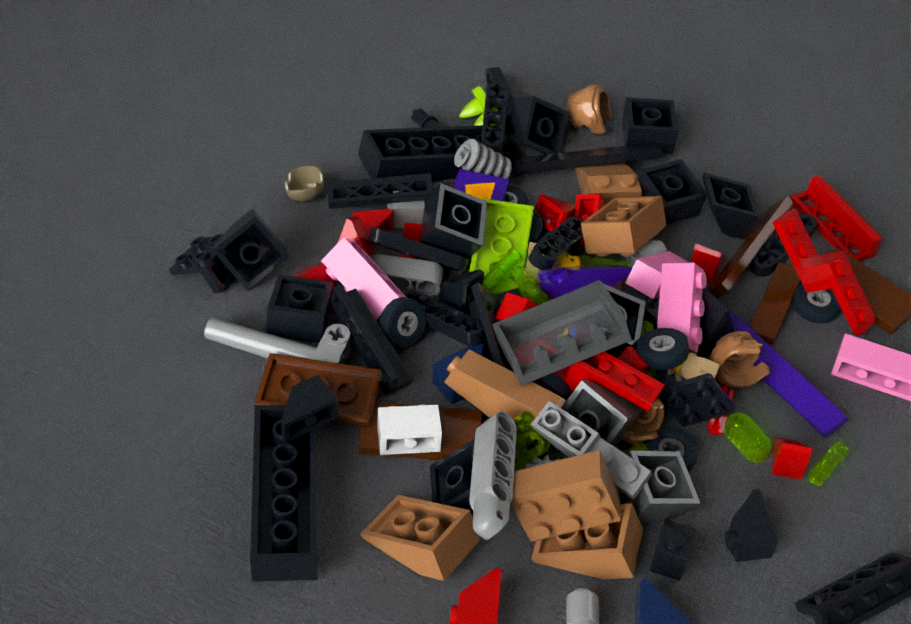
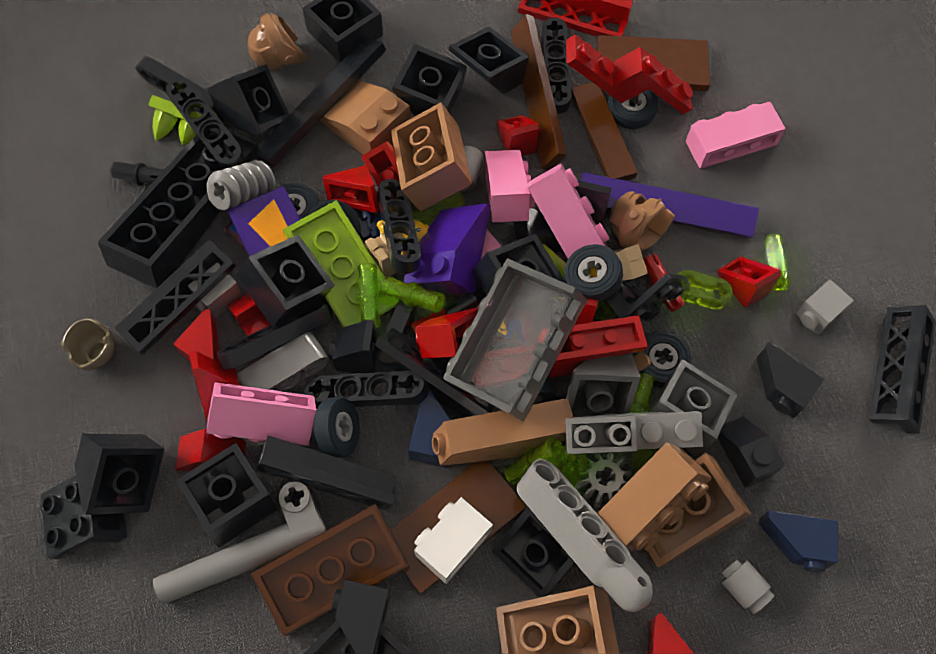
camera: 40 degrees left, 20 degrees up
(833, 510) = (824, 307): none -> light grey brick

